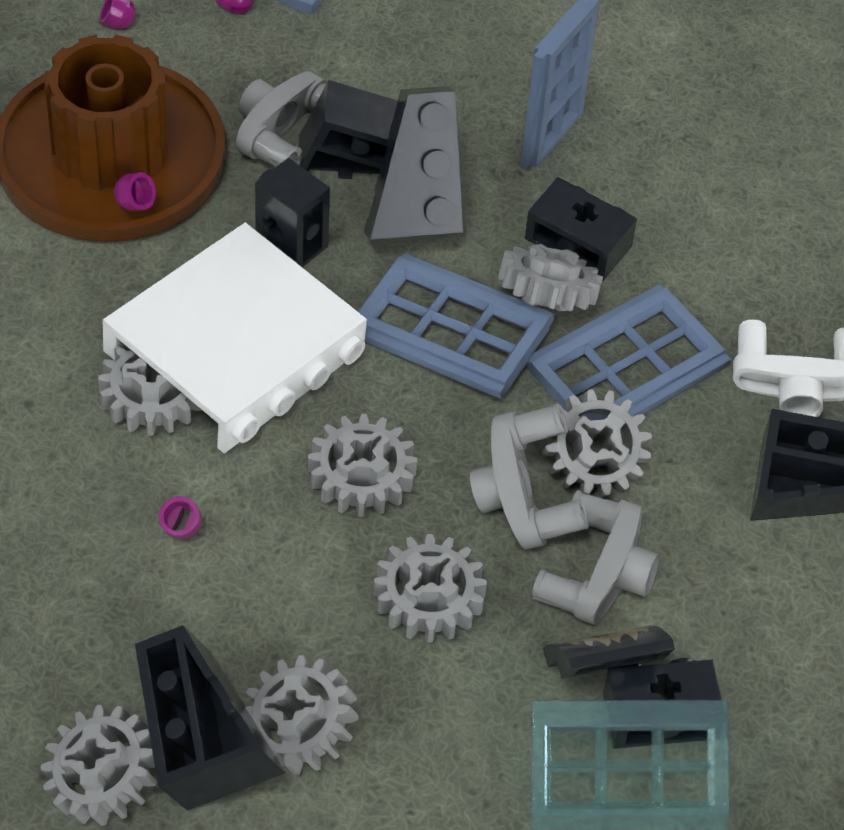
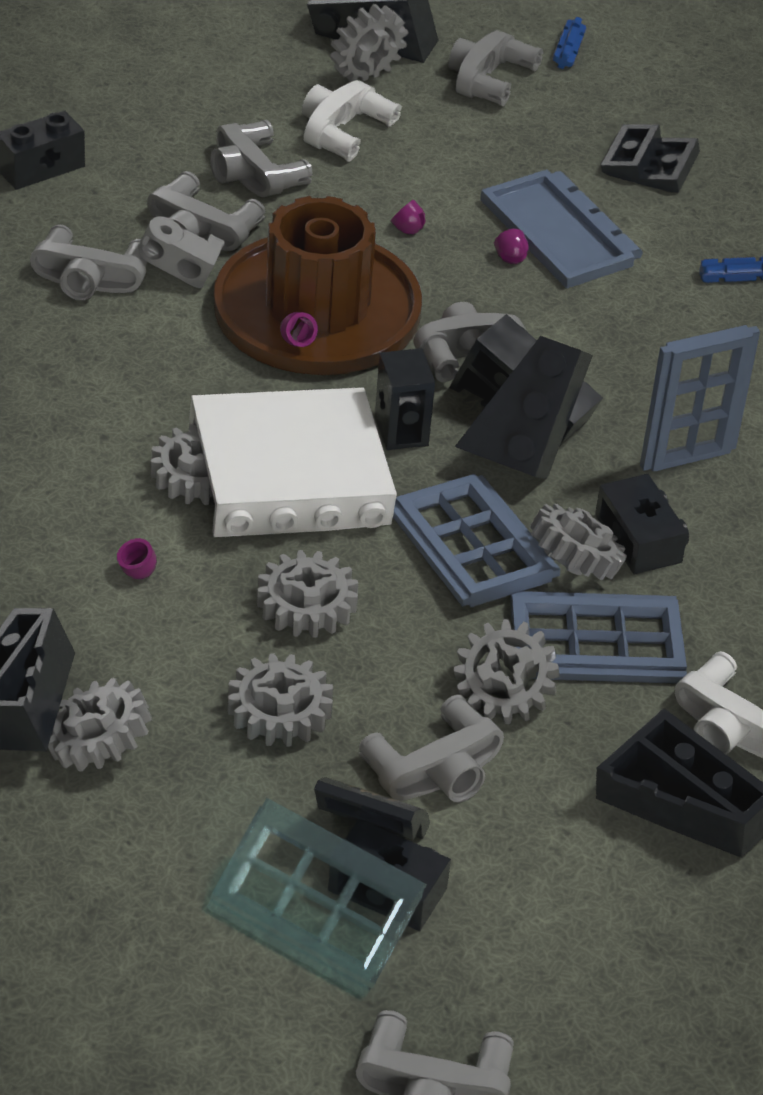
camera: 35 degrees right, 10 degrees down
(508, 481) = (409, 661): light grey connector -> none

